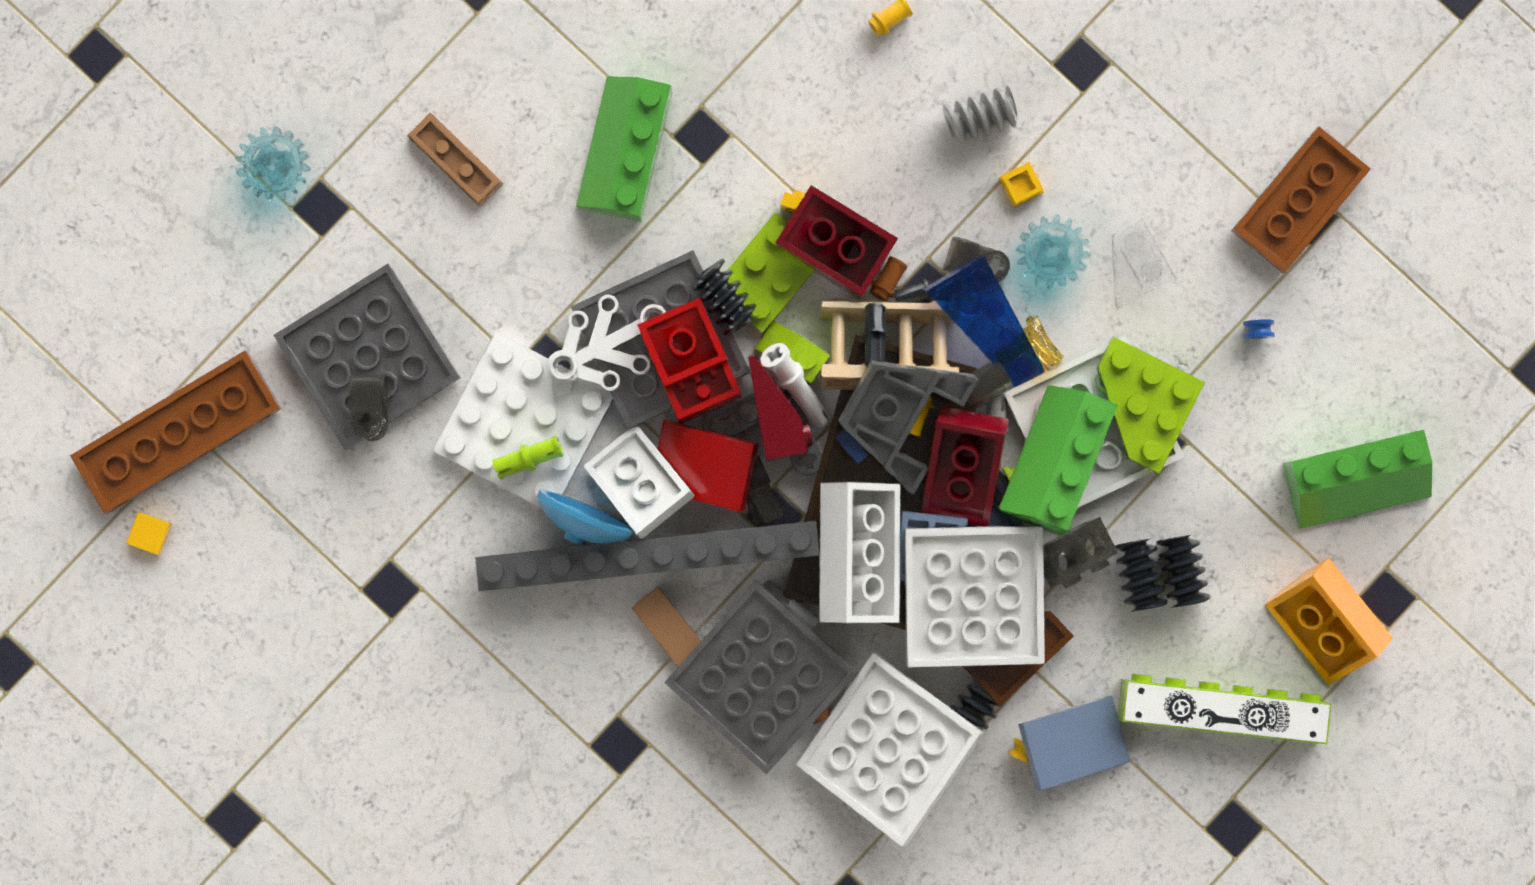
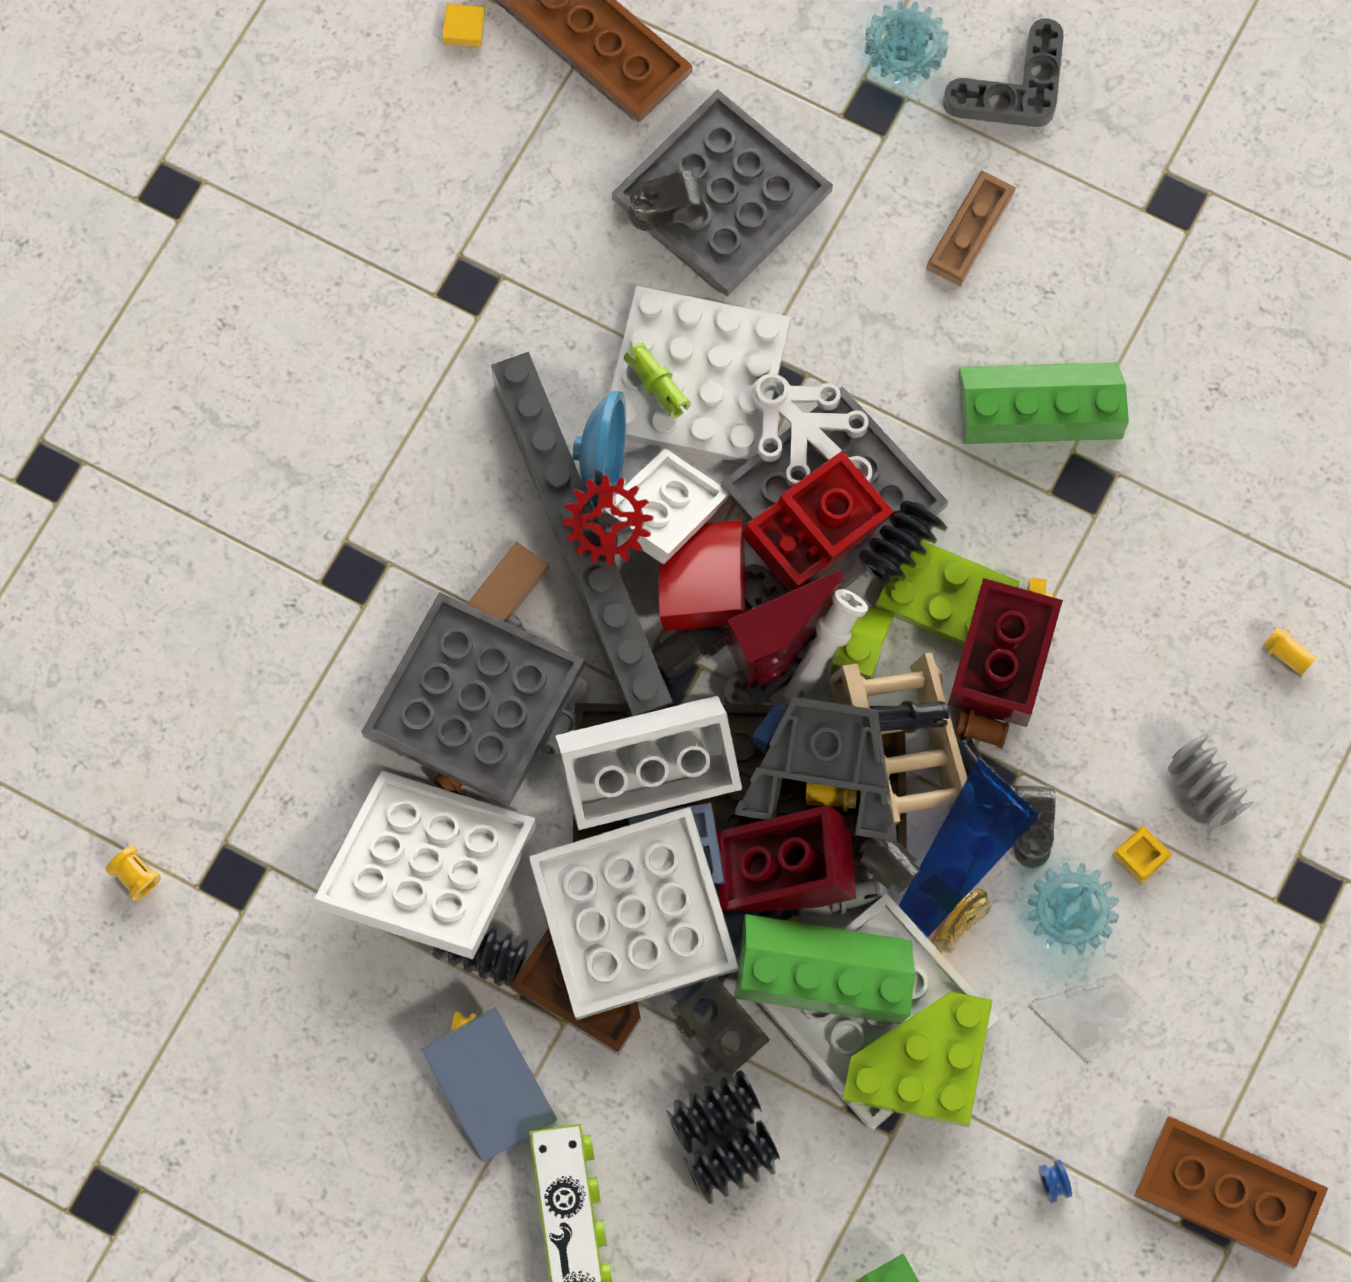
camera: 75 degrees right, 15 degrees down
(347, 82) = (1020, 96): none -> dark grey beam
(652, 546) = (608, 539): none -> red gear

